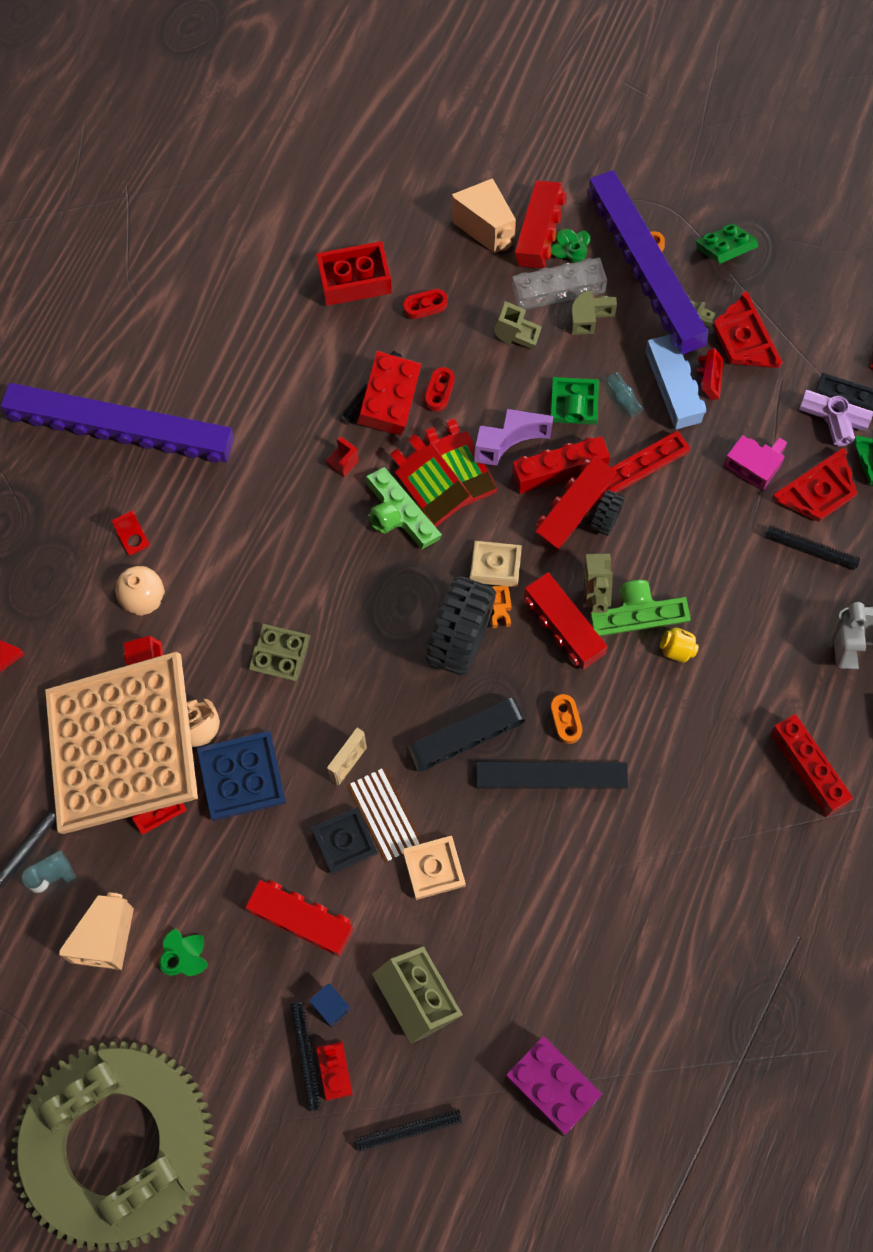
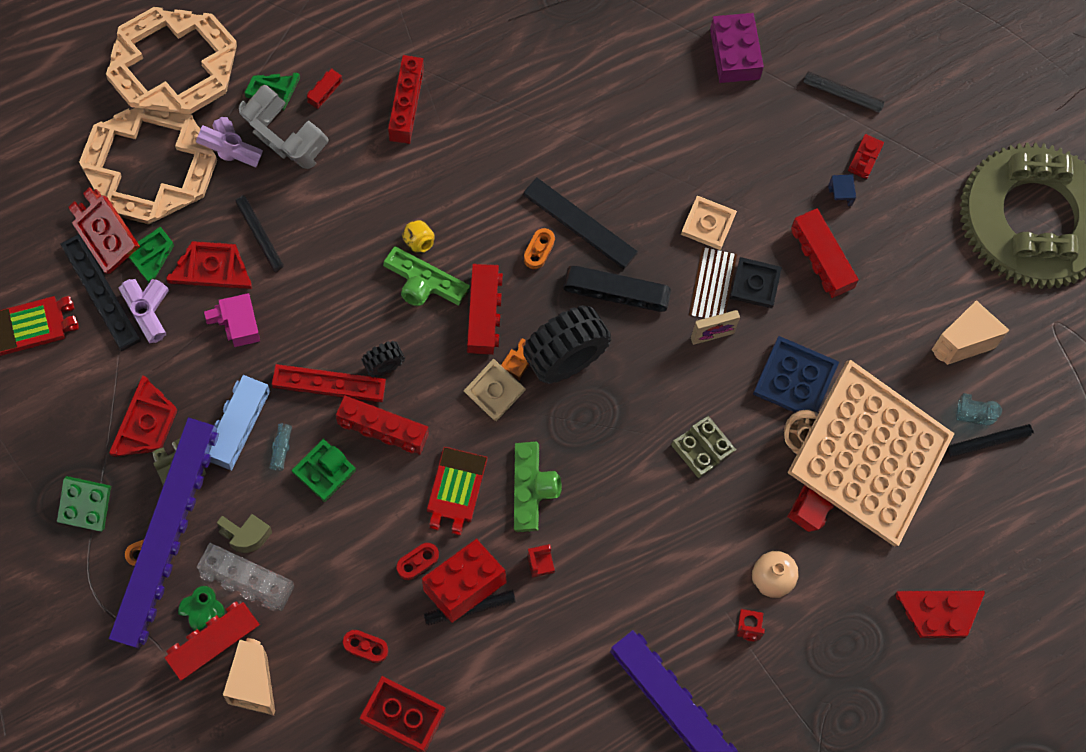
camera: 150 degrees left, 0 degrees up
(186, 952) = (915, 295): green plate -> none
(305, 1057) = (878, 176): black axle -> none
(416, 994) = (780, 156): olive slope -> none
(431, 481) = (488, 489): tile -> none
(512, 327) = (314, 561): olive brick -> none
(517, 427) = (421, 477): medium lavender arch -> none
(576, 502) = (401, 380): red brick -> none
(598, 582) = (441, 311): olive hips -> none
(711, 373) = (209, 403): red plate -> none

